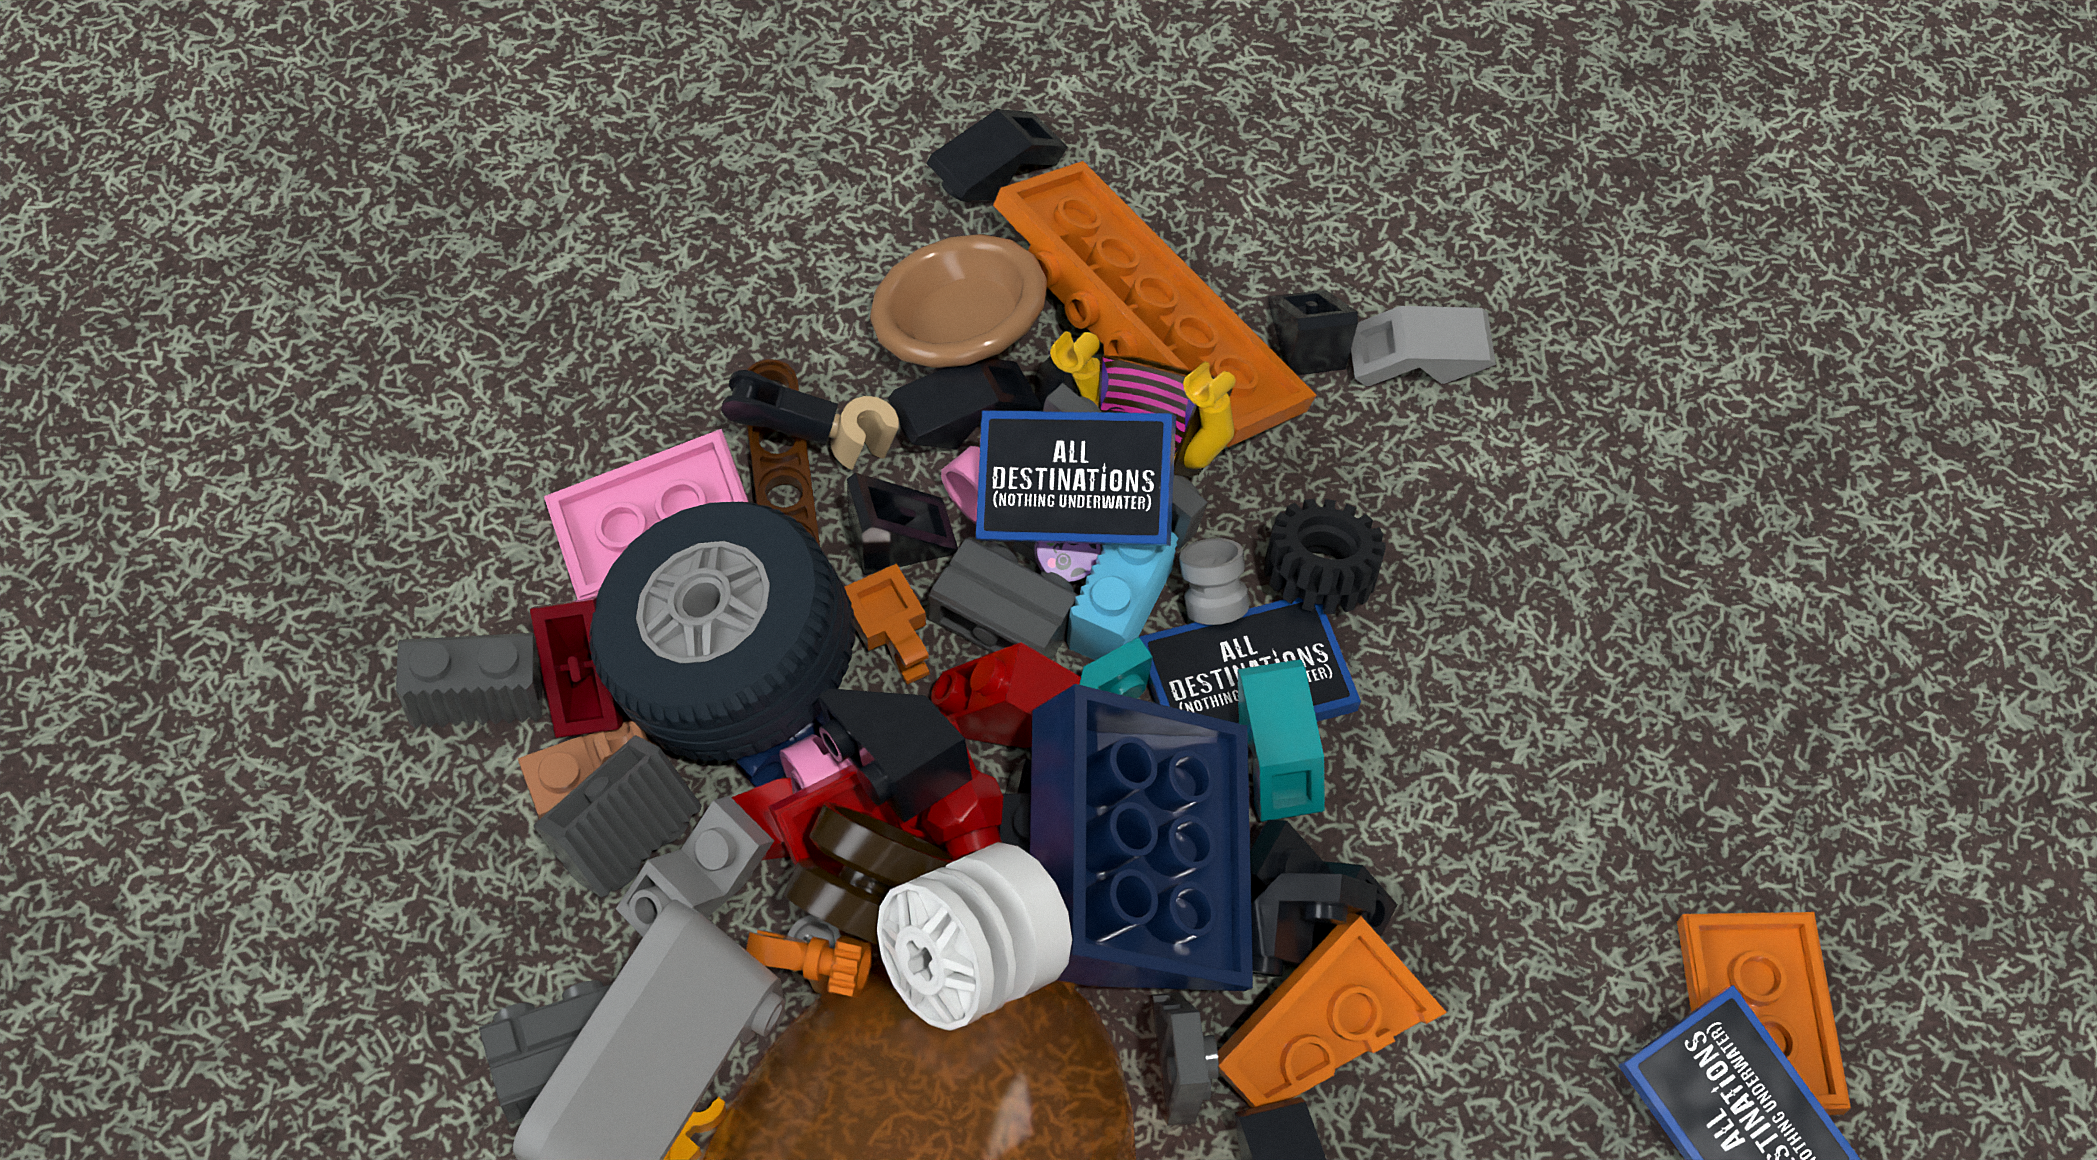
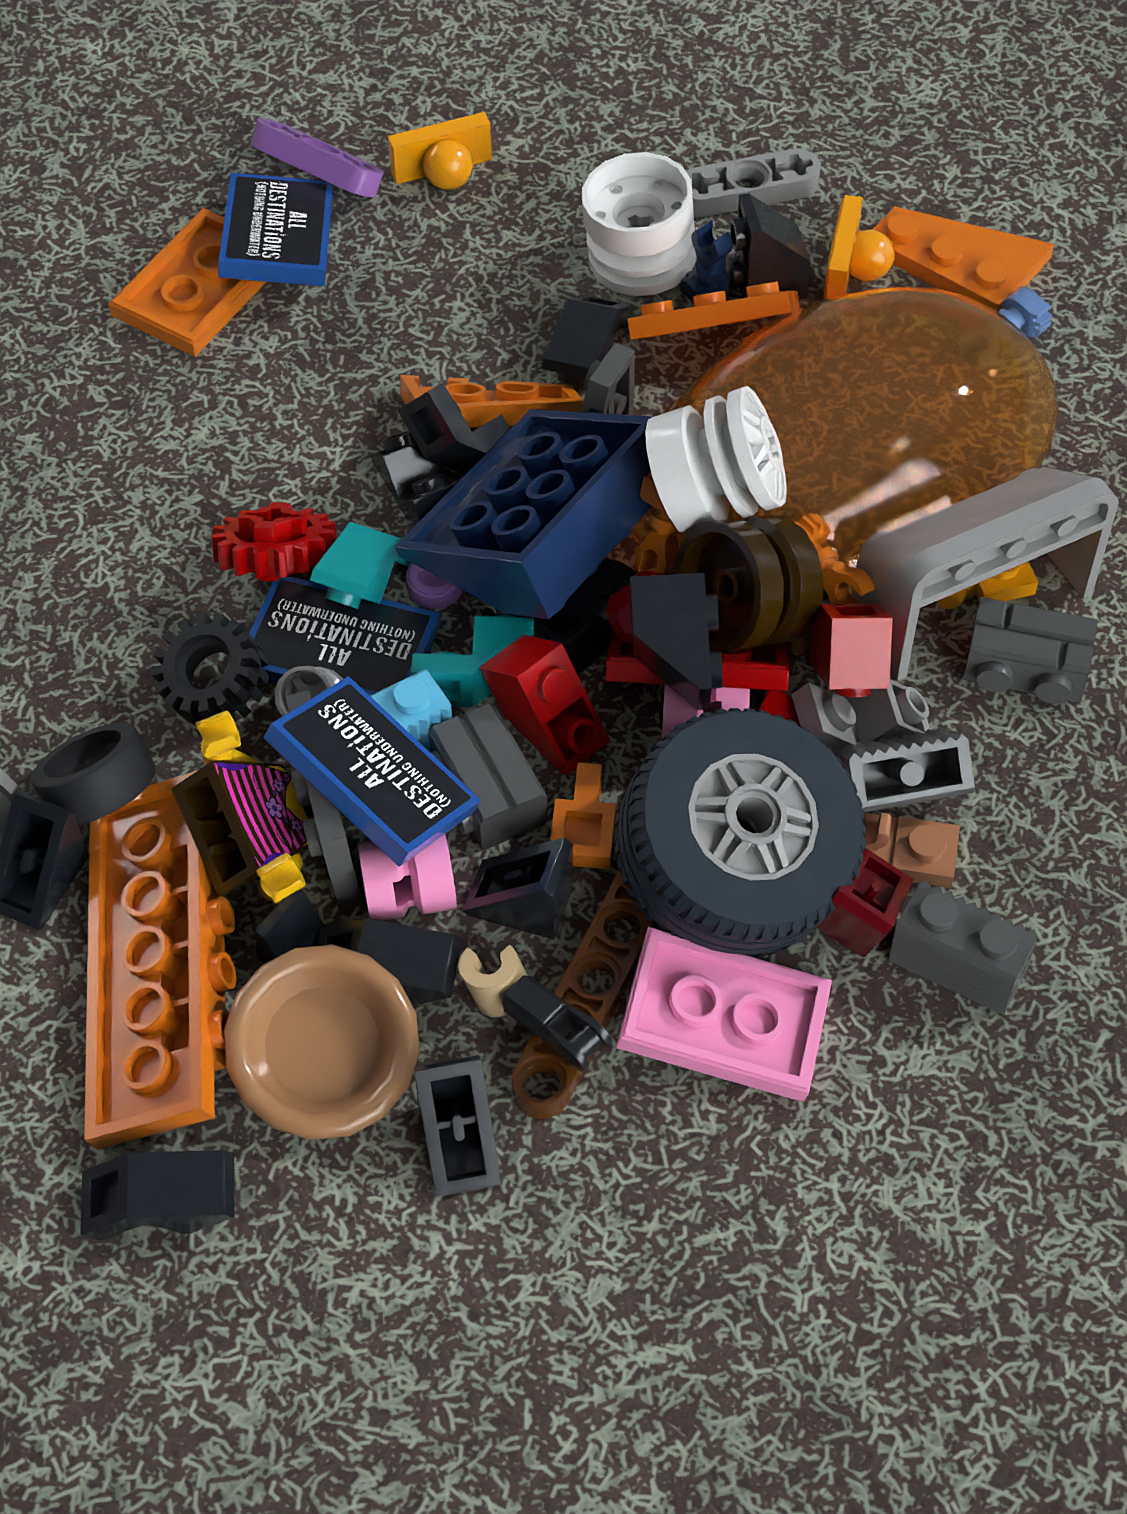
camera: 140 degrees left, 5 degrees down
(733, 887) = (852, 648): none -> slope
(814, 316) = (457, 1125): none -> black slope
(1297, 408) = (95, 771): none -> black tyre
(1364, 693) = (272, 541): none -> red gear

